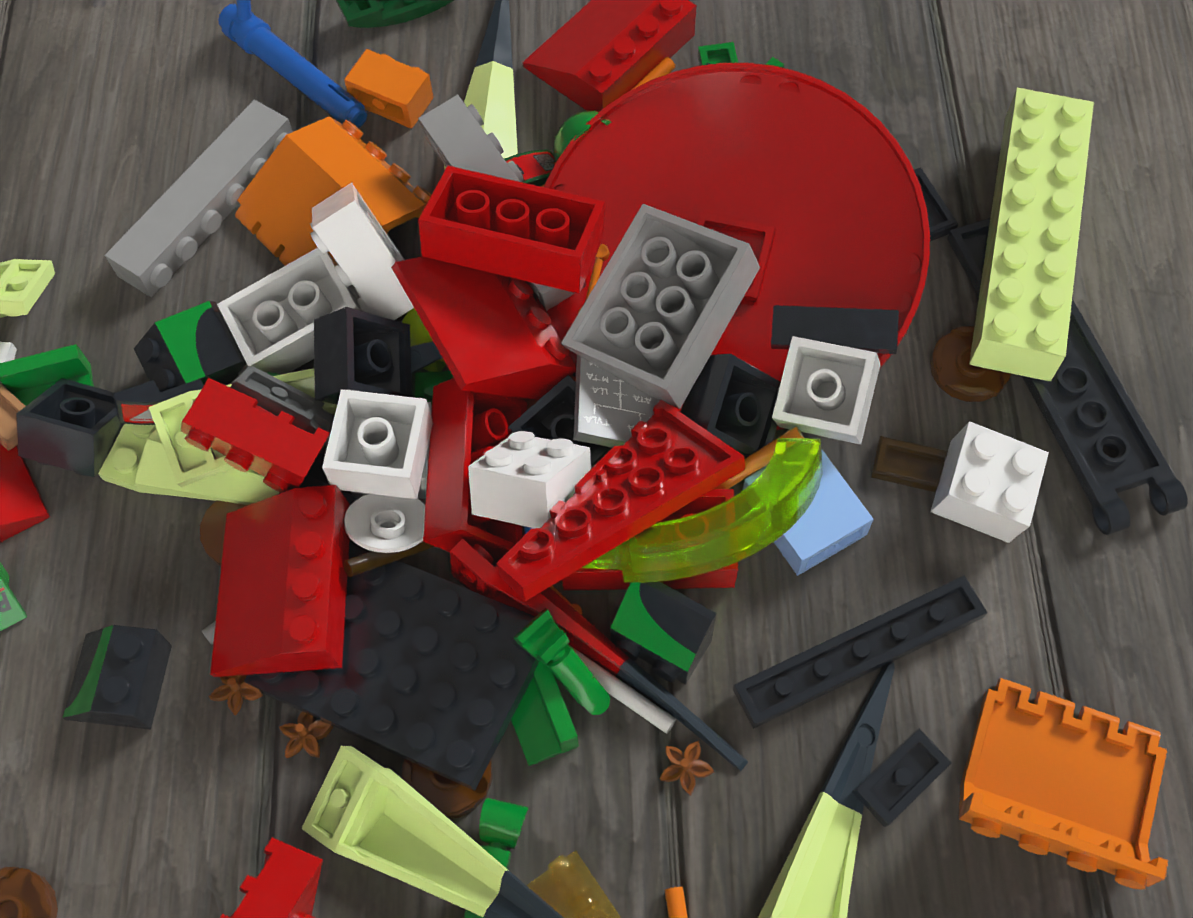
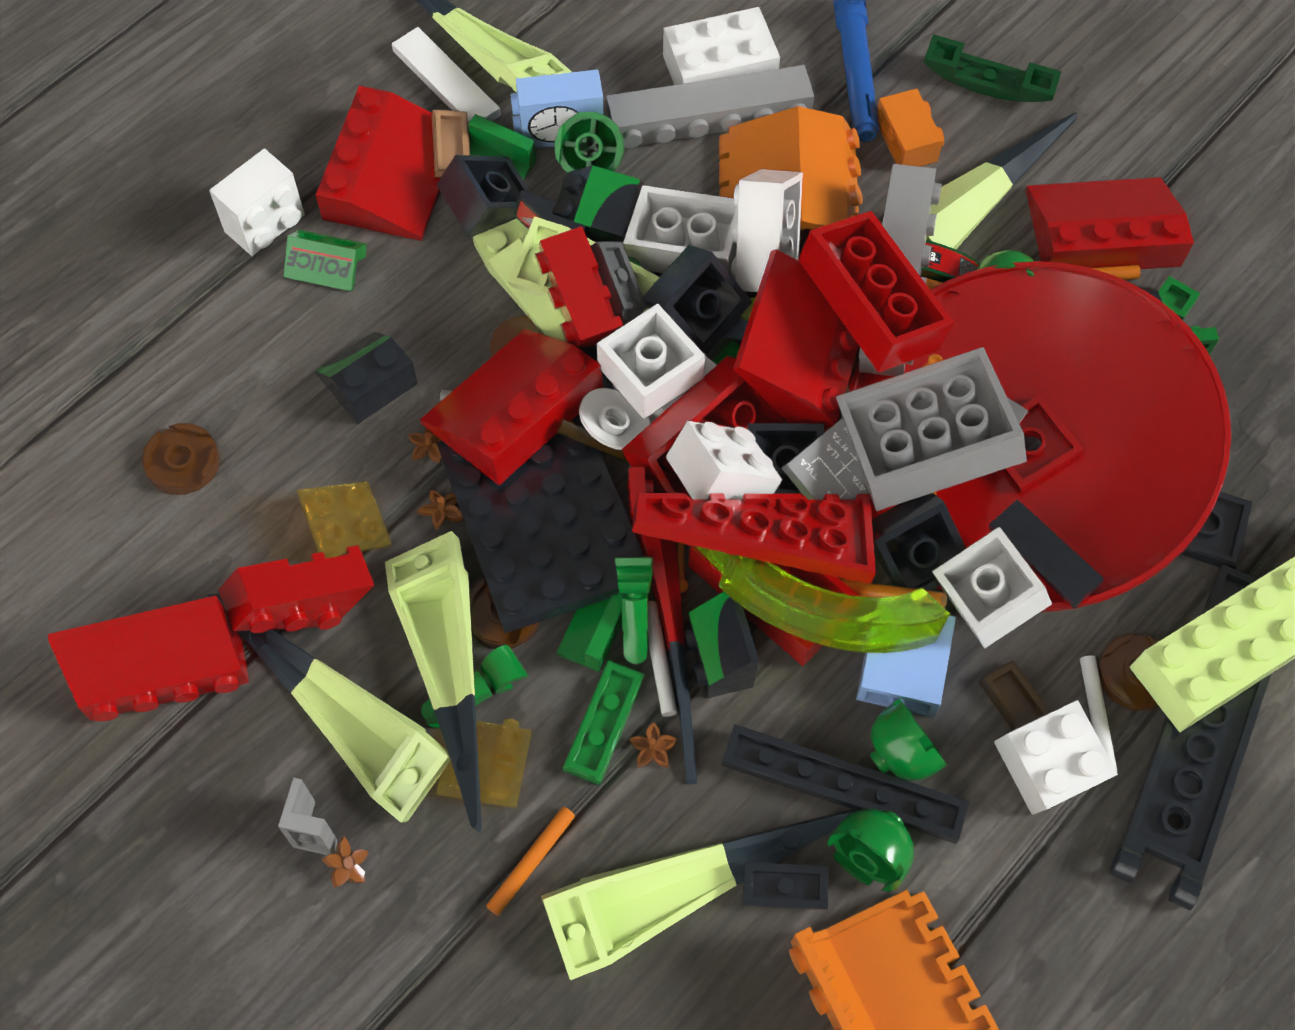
camera: 40 degrees right, 0 degrees up
(72, 298) = (551, 100): none -> light blue brick
(110, 305) = (574, 138): none -> green cylinder
(165, 141) = (719, 47): none -> white brick
(225, 827) = (343, 518): none -> clear yellow hinge
(626, 786) = (603, 722): none -> green tile
(876, 576) = (903, 745): none -> green cylinder
(937, 678) = (873, 847): none -> green cylinder
(959, 407) = (1096, 704): none -> white bar

